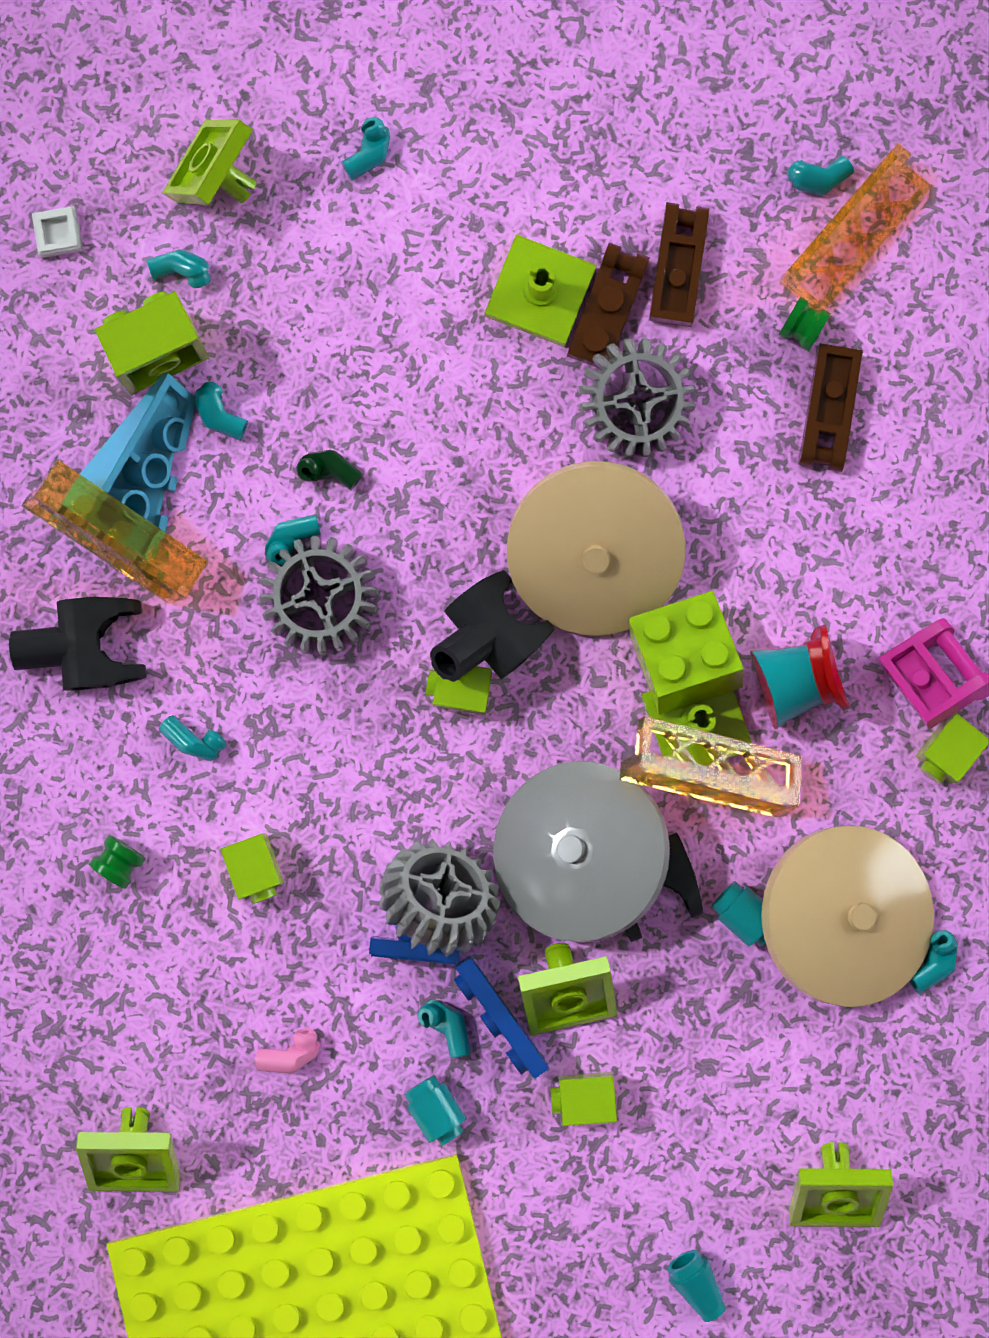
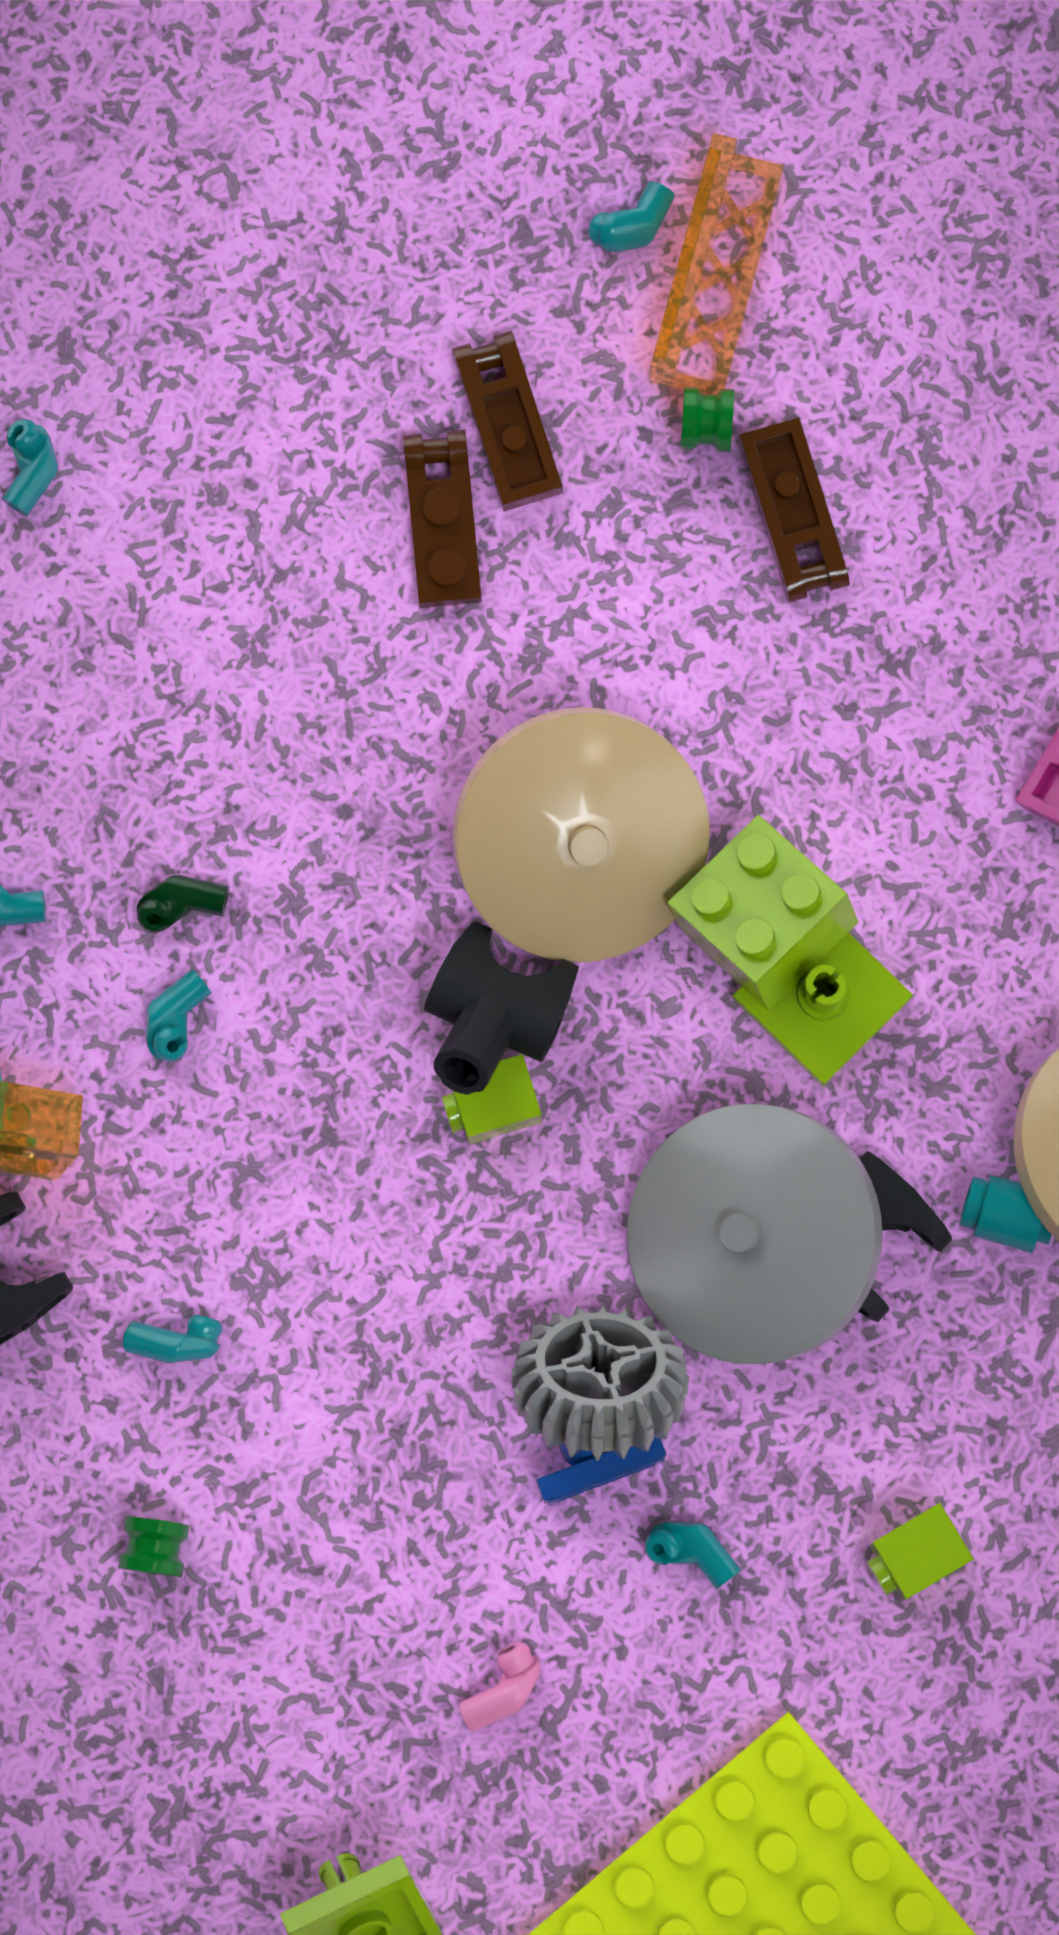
camera: 20 degrees left, 5 degrees down
(253, 868) = (337, 1467): lime brick -> none
(299, 601) = (230, 1094): light grey gear -> none
(435, 1110) = (731, 1666): teal brick -> none
(499, 1018) = (756, 1504): blue plate -> none
(540, 290) = (343, 540): lime tile -> none
(567, 992) = (828, 1425): lime tile -> none
(633, 377) = (555, 641): light grey gear -> none
(706, 782) = (878, 1063): clear yellow fence -> none
(799, 678) = (925, 874): hat -> none

